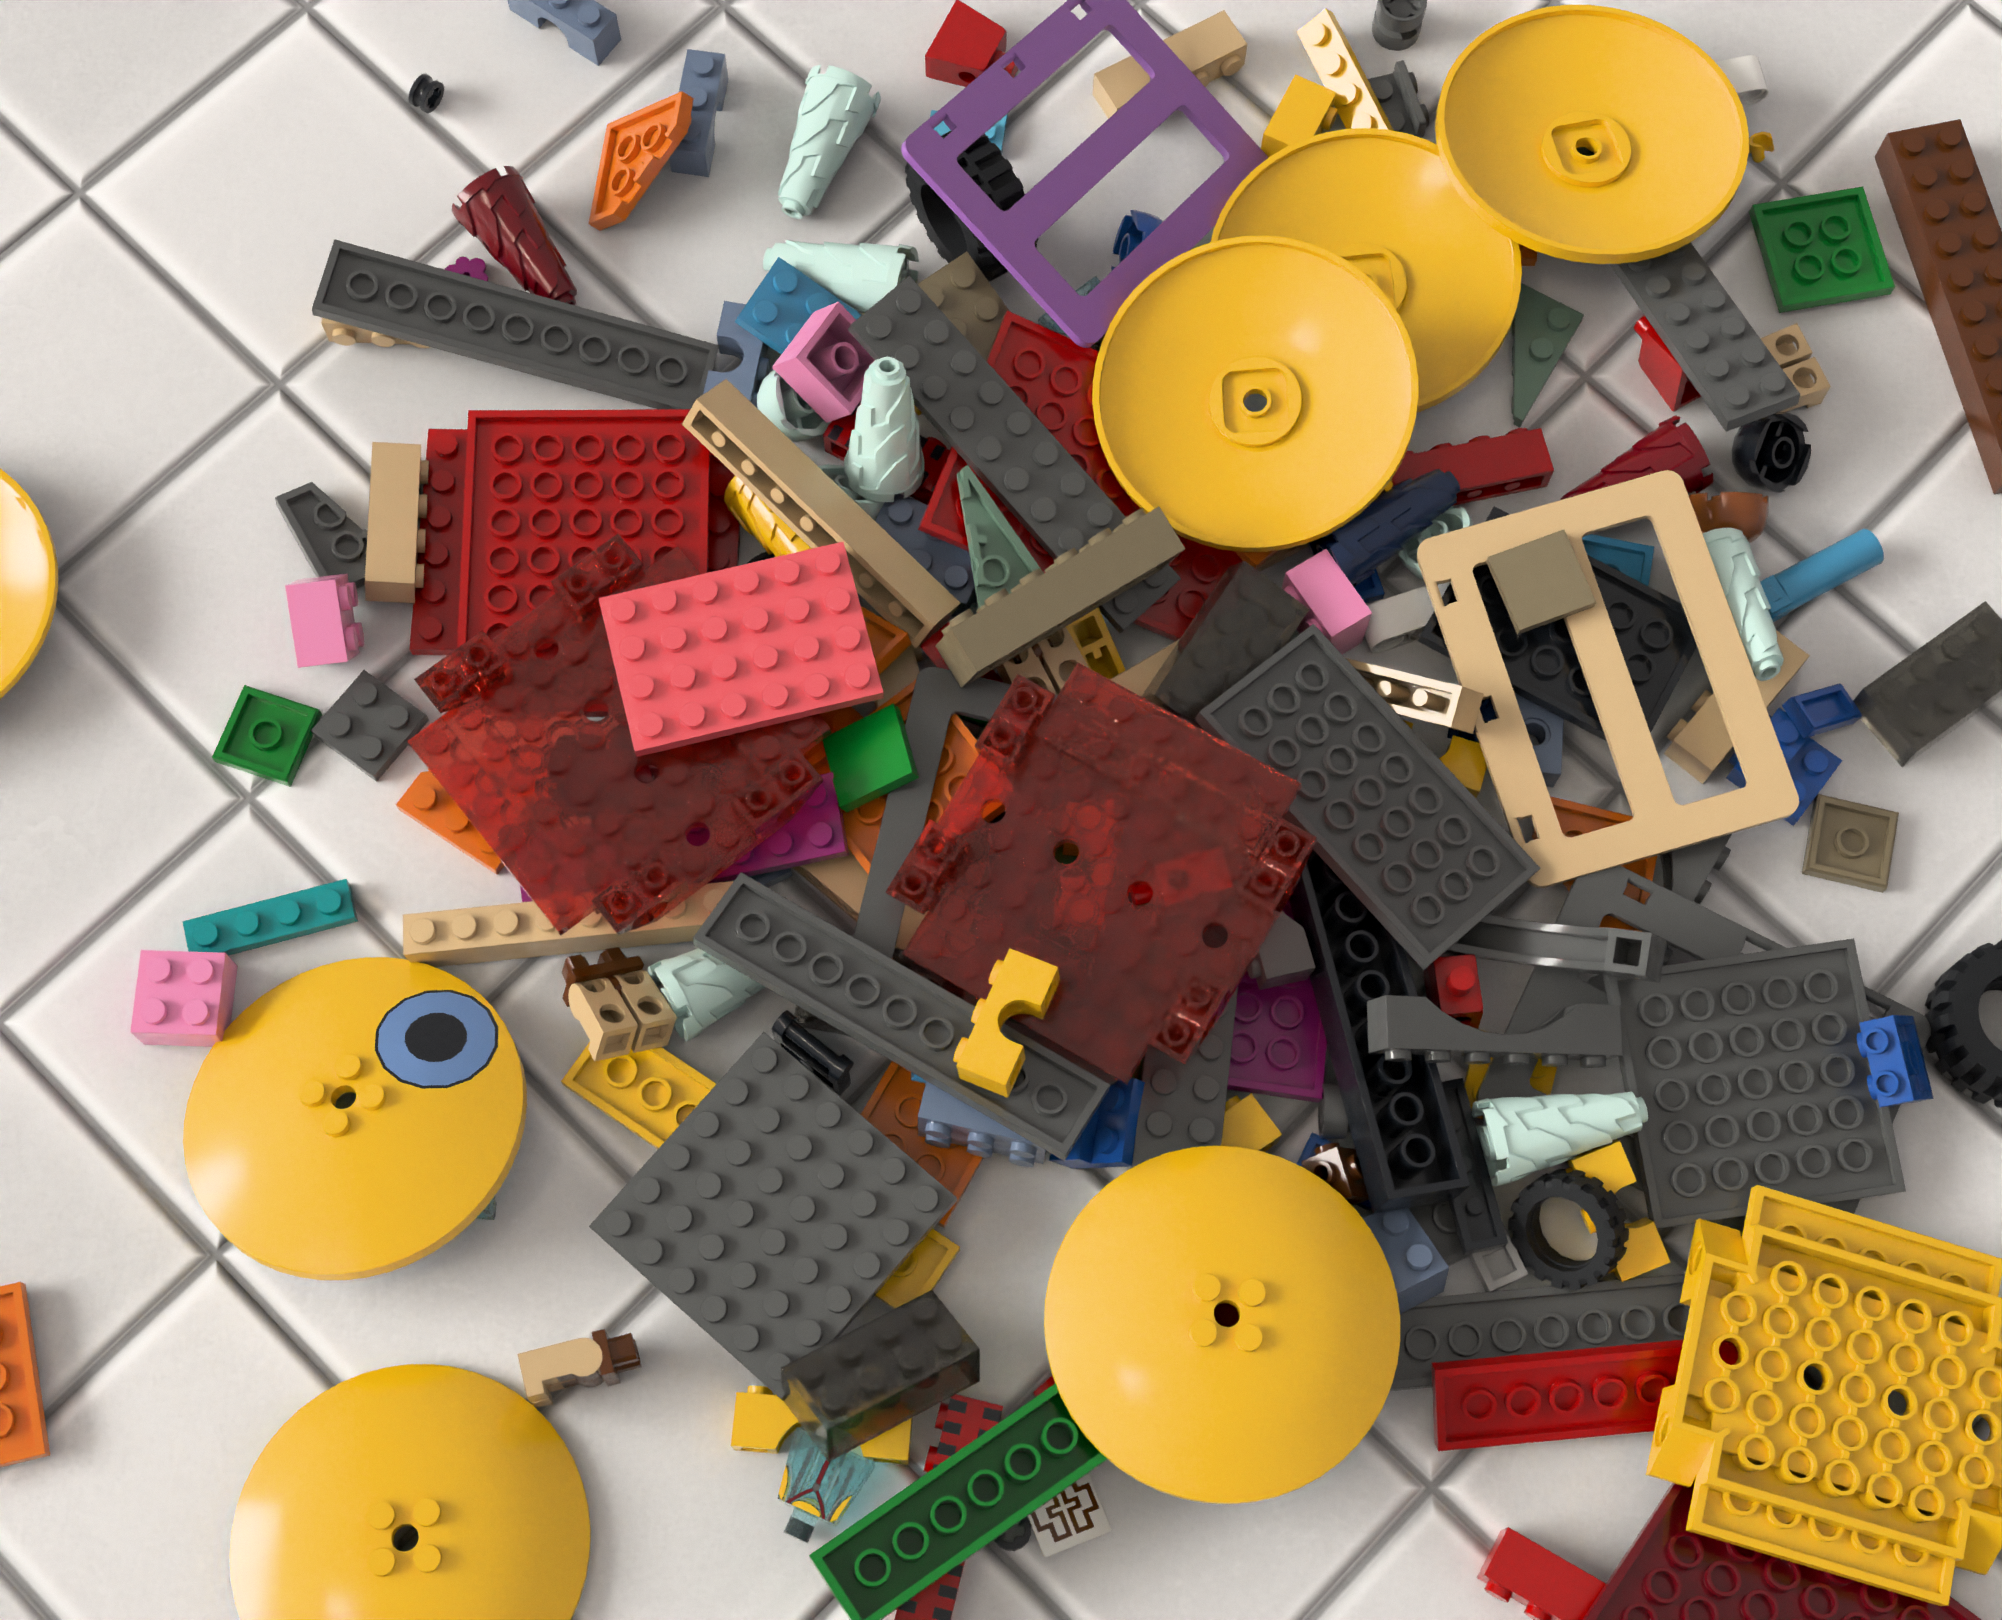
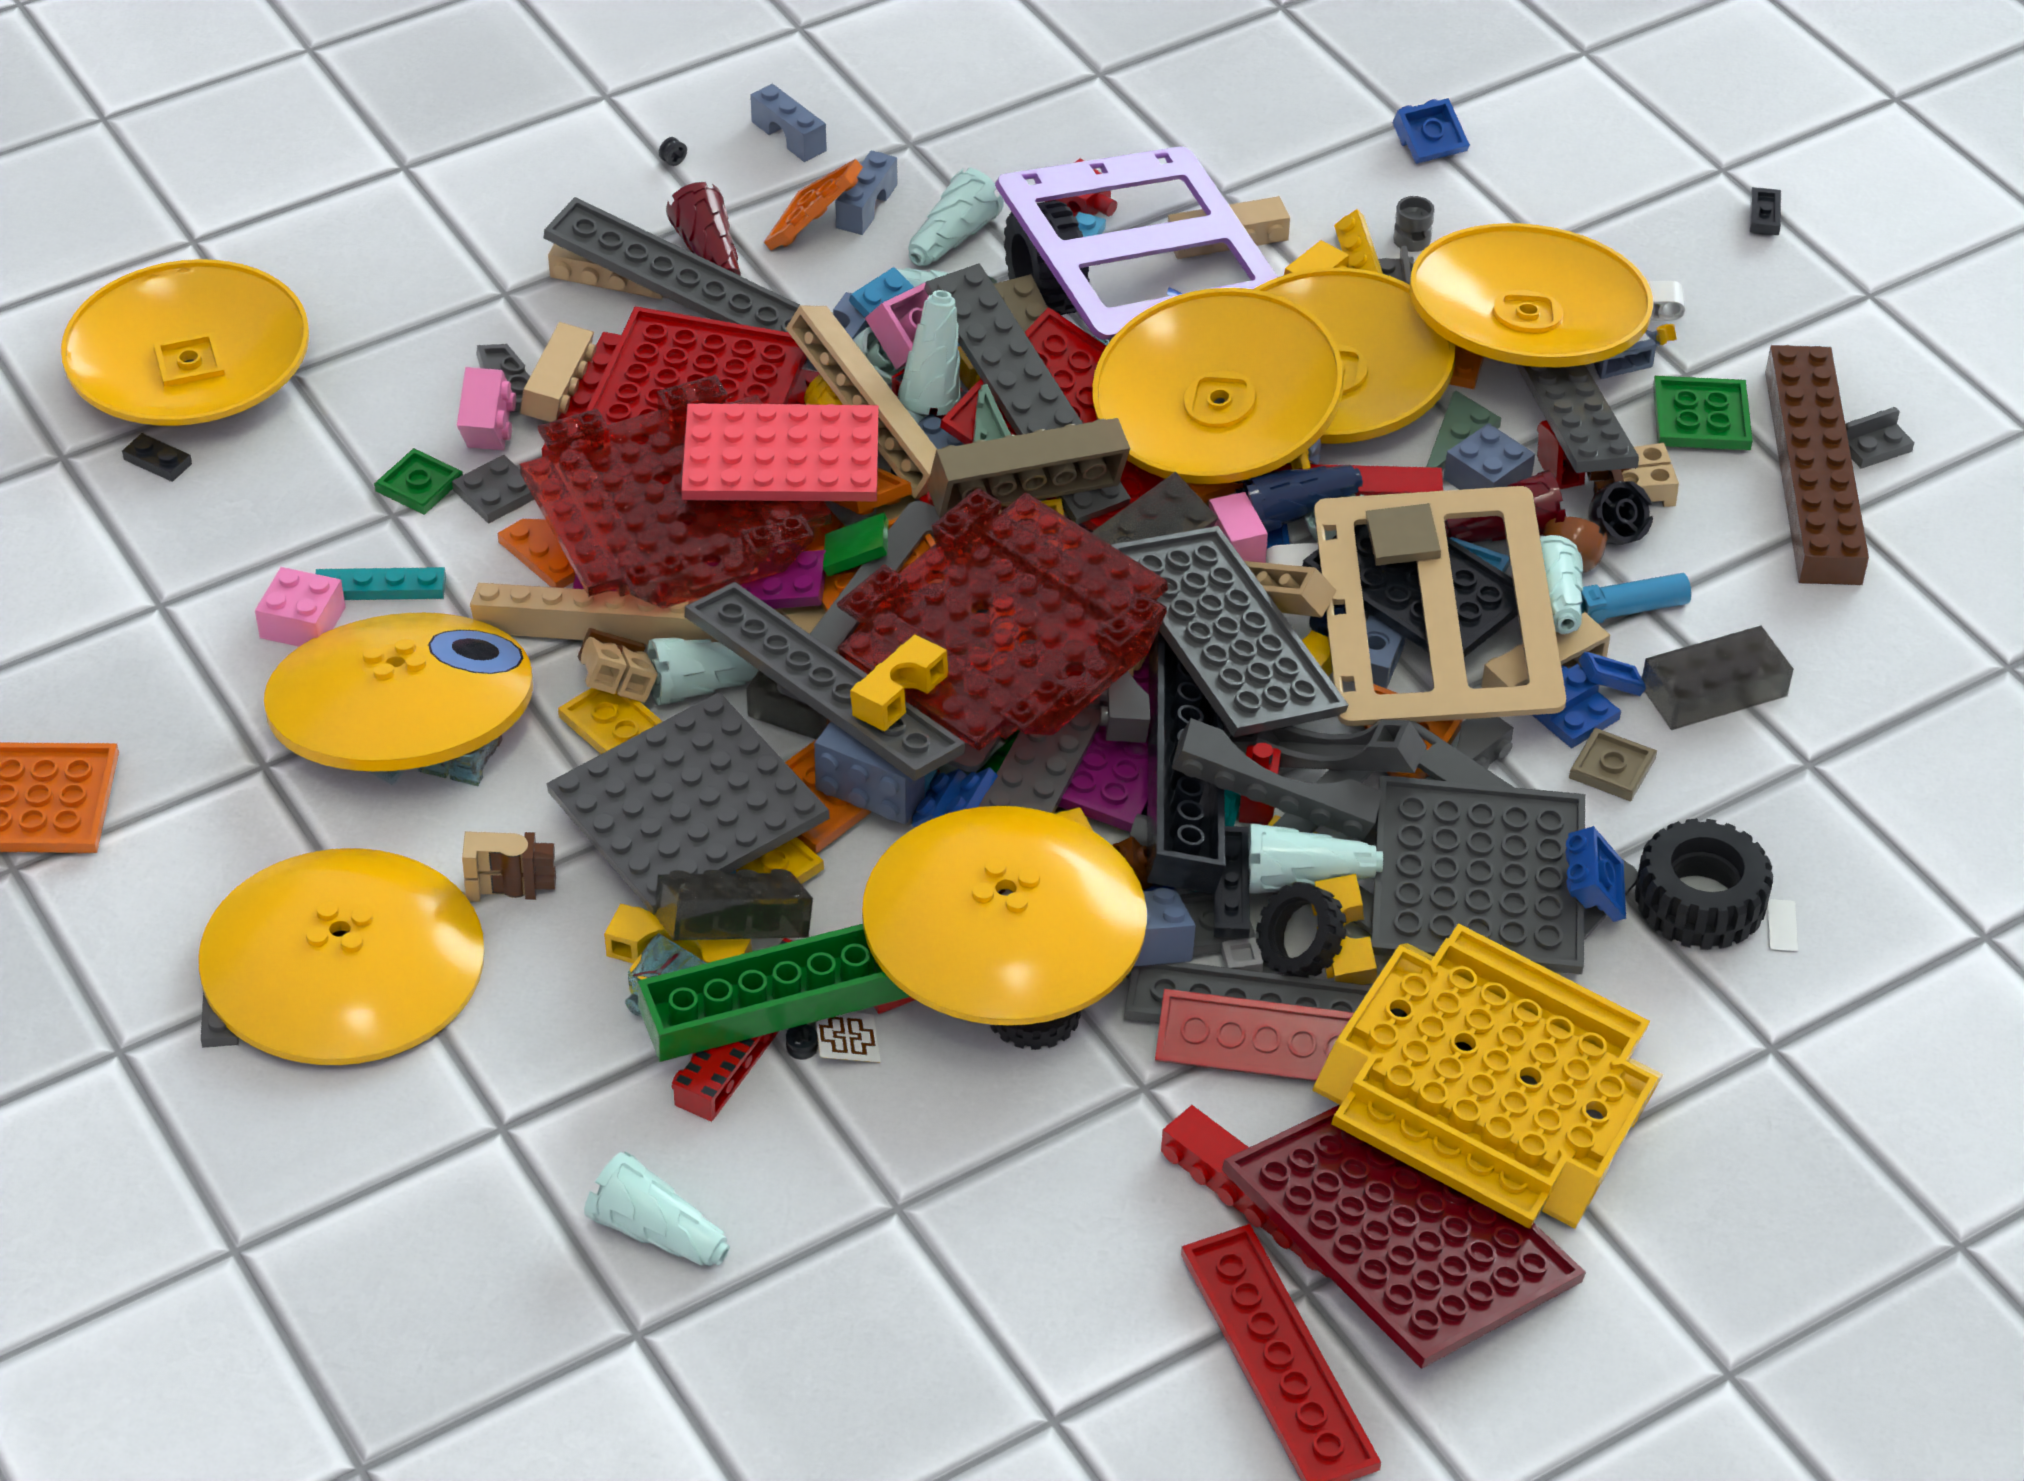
camera: 15 degrees right, 25 degrees down
(812, 1053) = (753, 713): black plate -> none
(1592, 403) = (1488, 461): none -> sand blue brick

